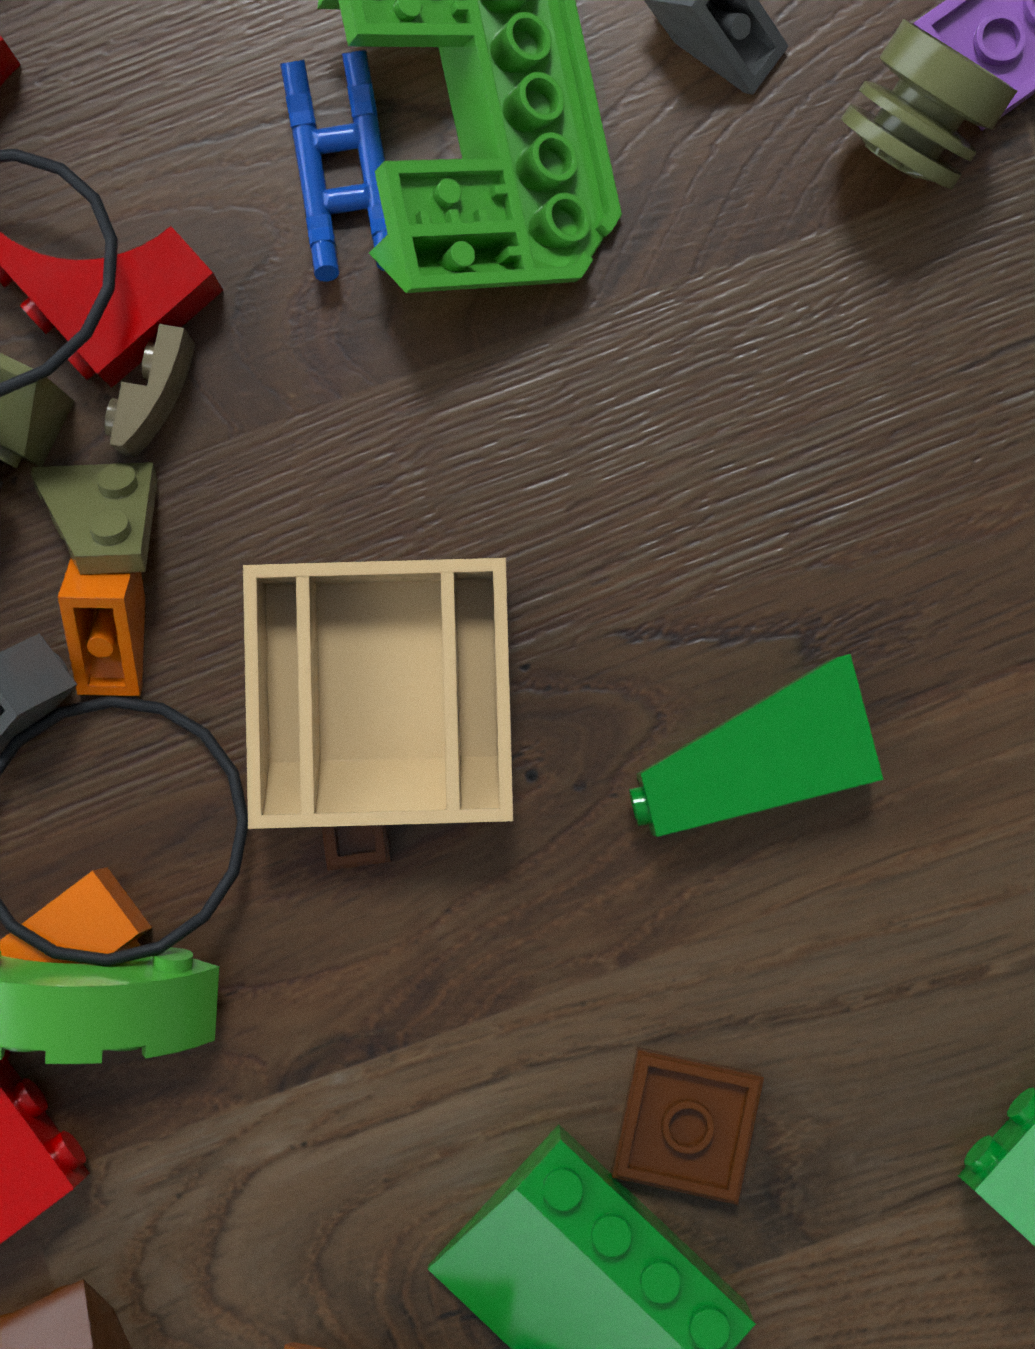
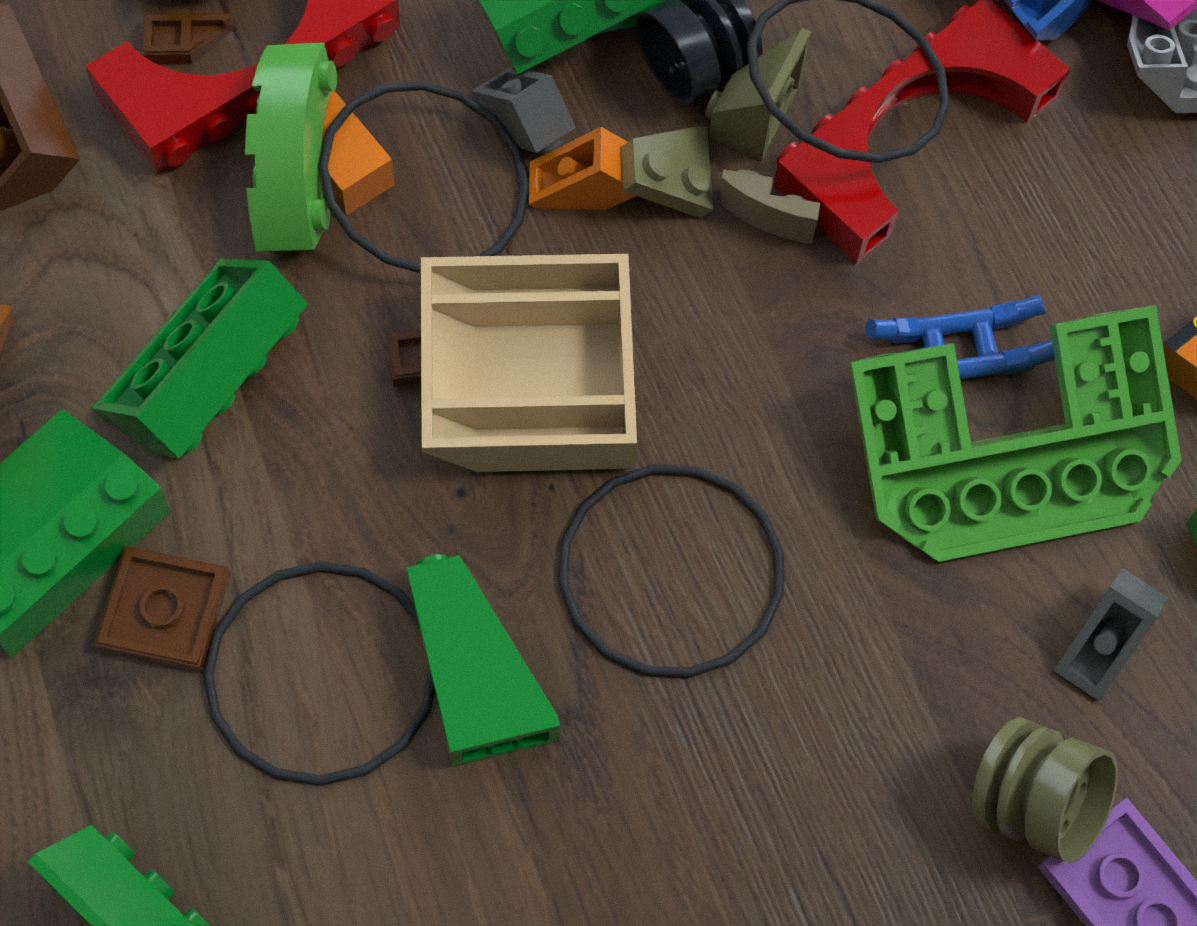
camera: 90 degrees right, 20 degrees down
(363, 1102) = (202, 356): none -> green slope
(628, 651) = (670, 670): none -> black piece
(790, 1059) = (212, 693): none -> black piece

